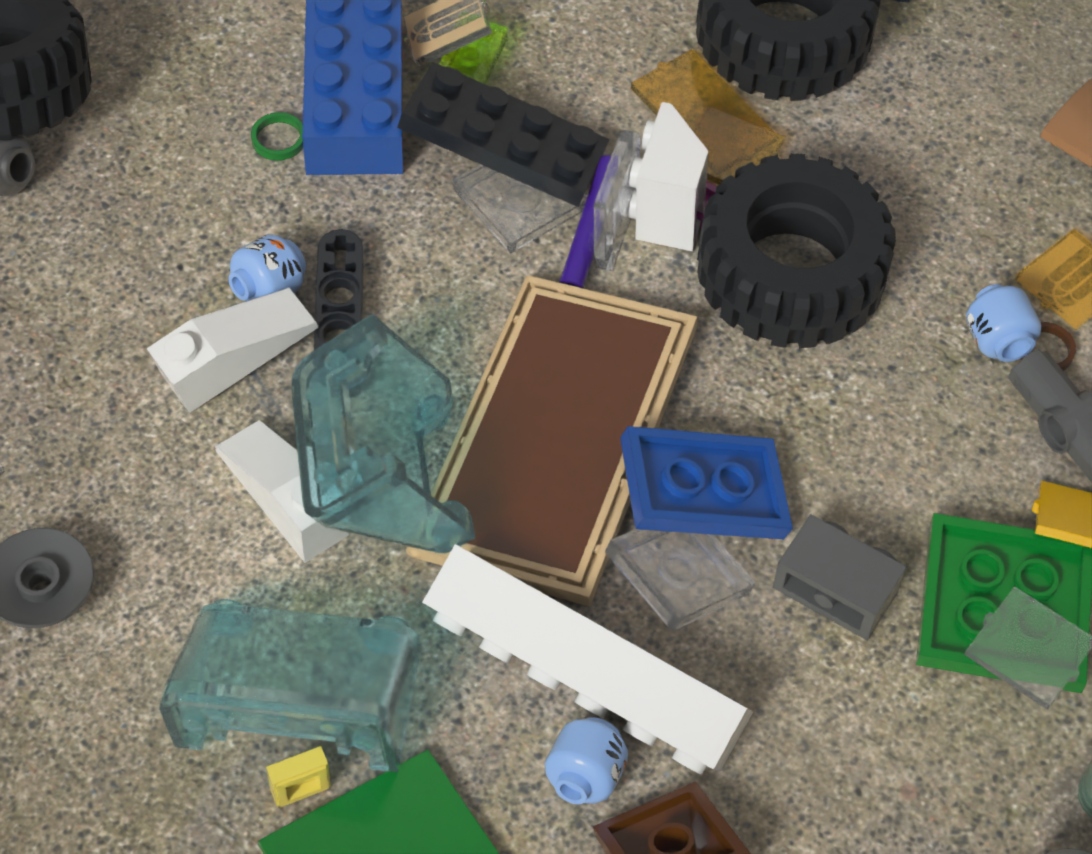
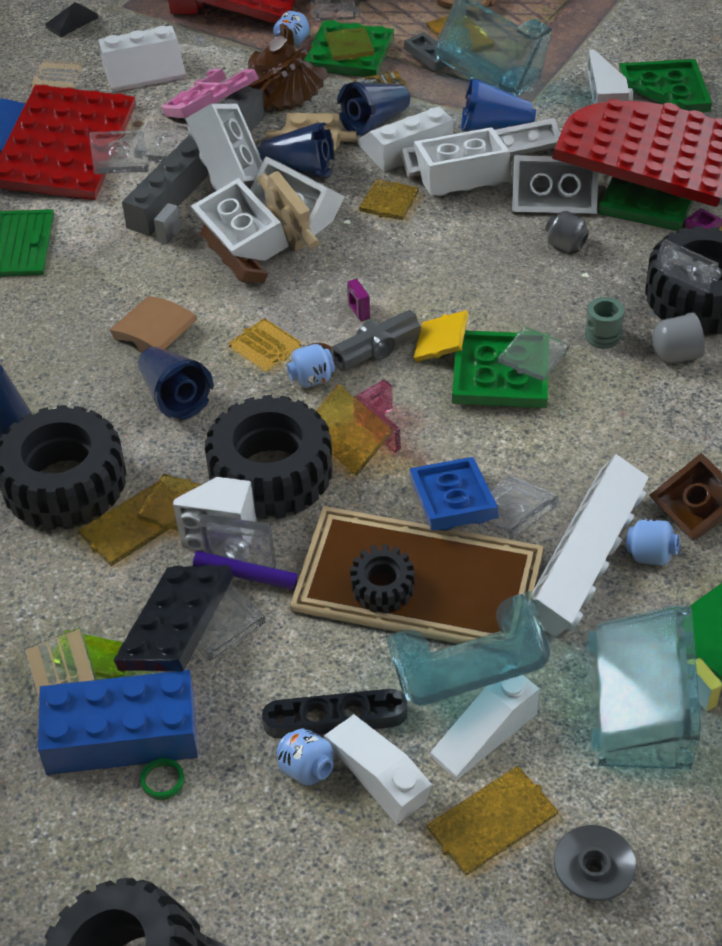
camera: 90 degrees left, 10 degrees down
(144, 483) = (491, 820): none -> clear yellow piece
(536, 348) = (382, 561): none -> black tyre
(839, 576) = (501, 435): dark grey brick -> none
(859, 362) = (353, 429): none -> clear yellow piece
(910, 391) = (379, 401): none -> clear pink bracket
(962, 140) = (175, 382): none -> dark blue cone

